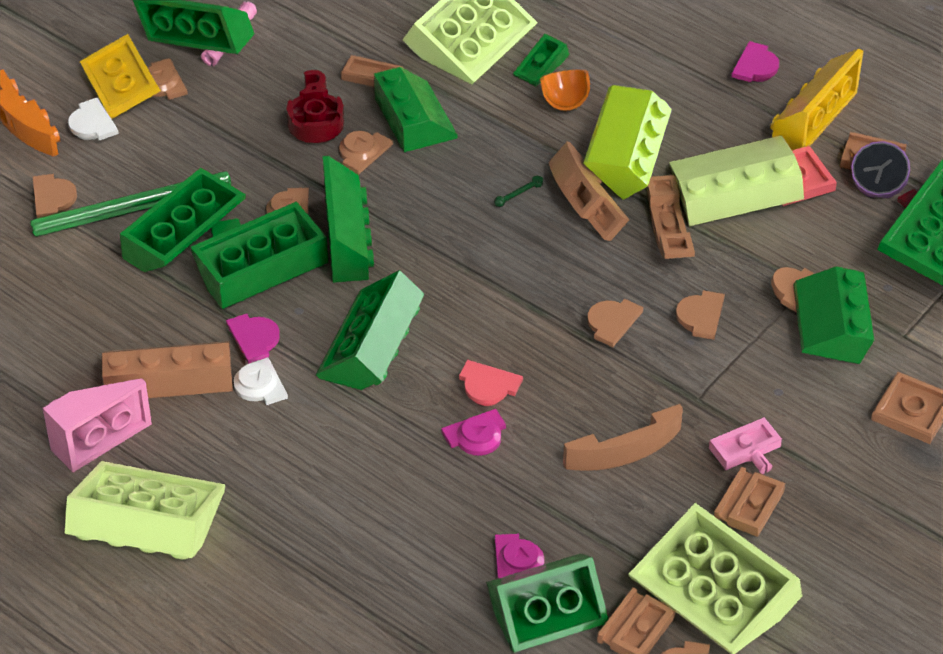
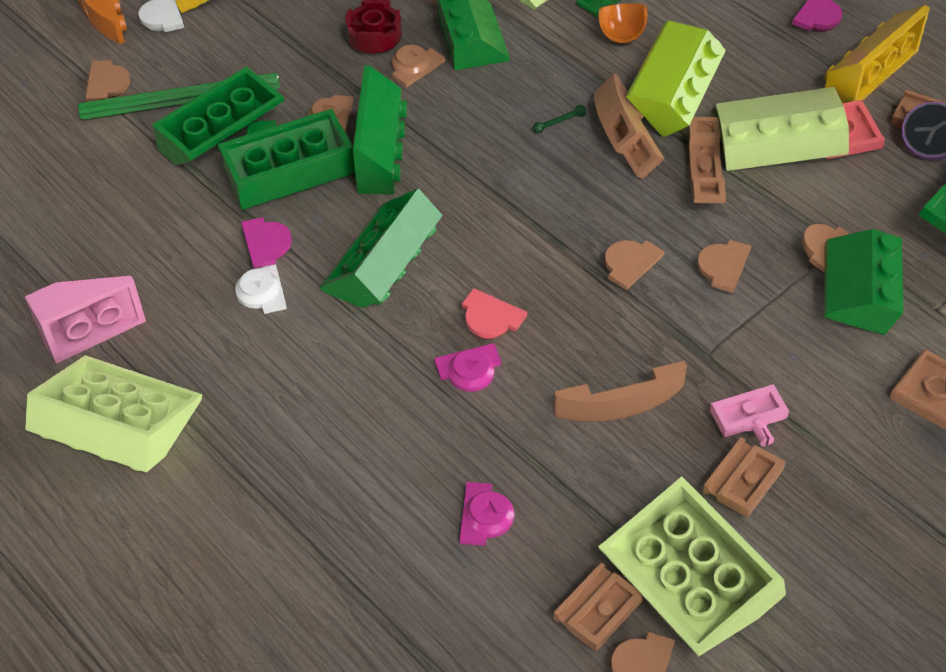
camera: 10 degrees right, 5 degrees up
(172, 369) = (174, 266): nougat slope -> none
(548, 602) = (507, 567): green slope -> none

